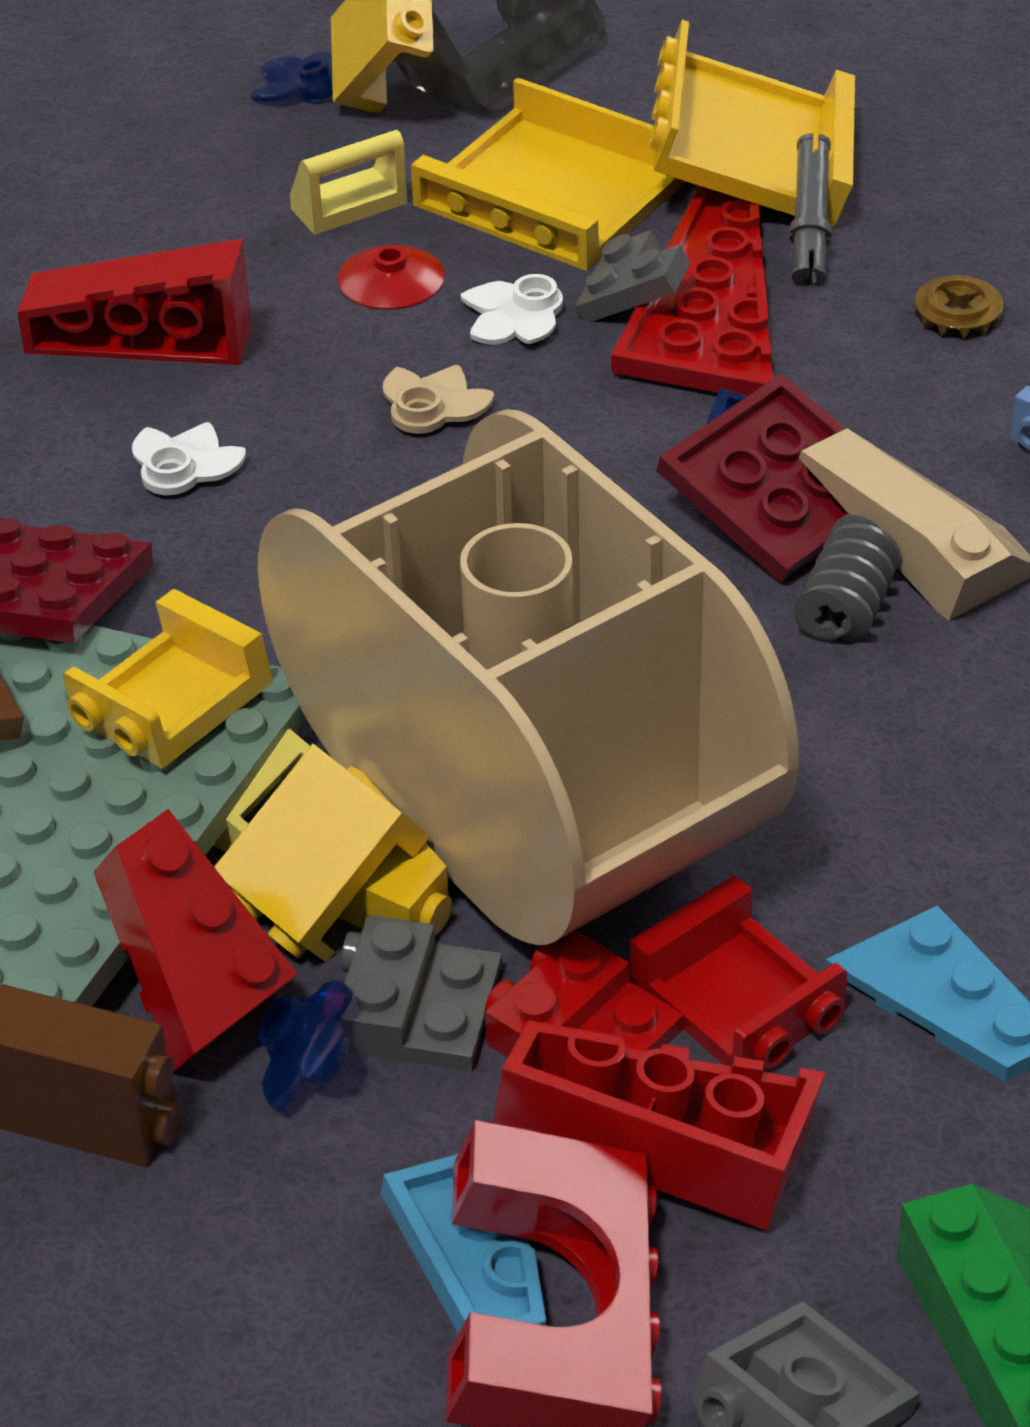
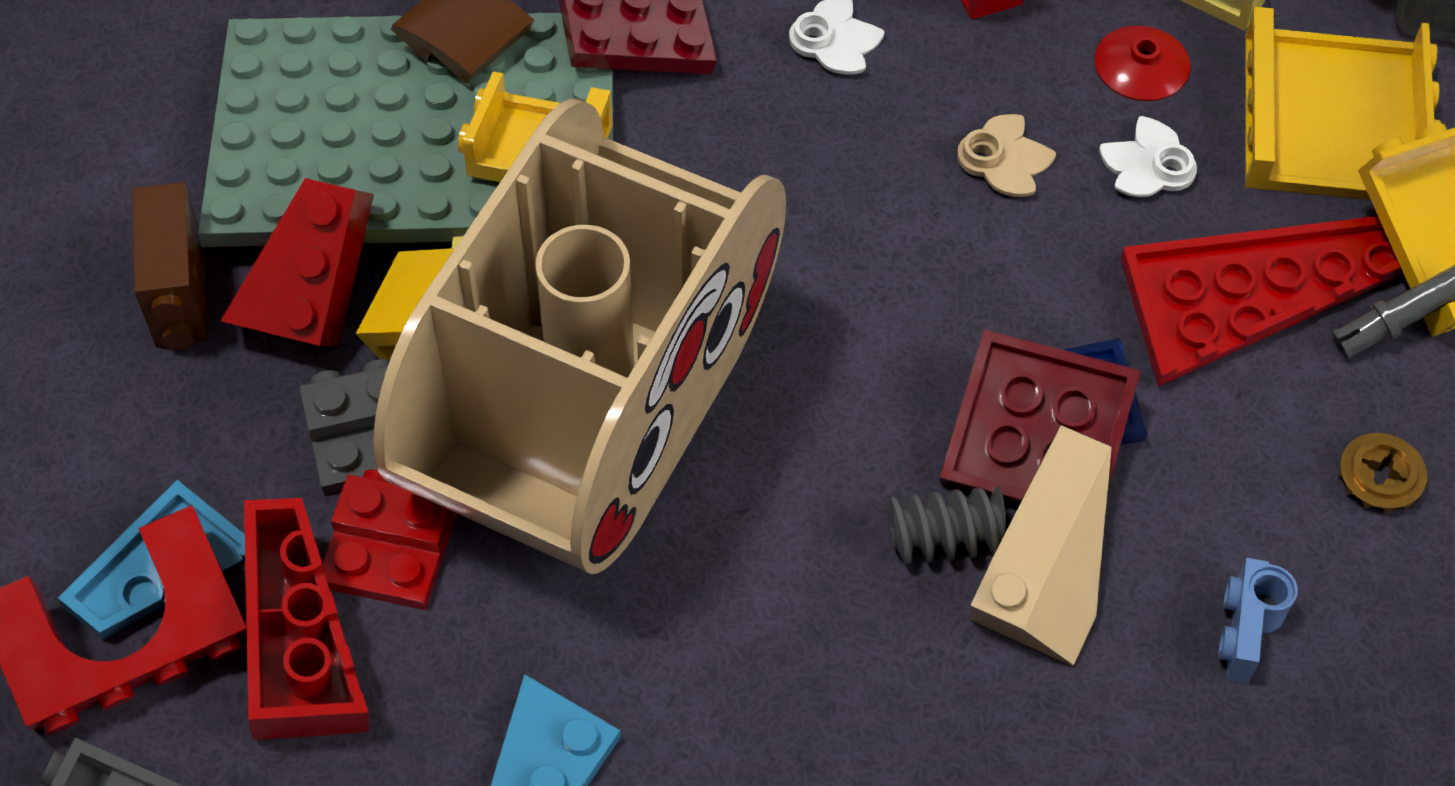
camera: 60 degrees right, 15 degrees up
(304, 1041) = (289, 374): clear blue plate -> none
(631, 275) = (1234, 218): dark grey plate -> none
(735, 979) = (473, 624): red panel -> none

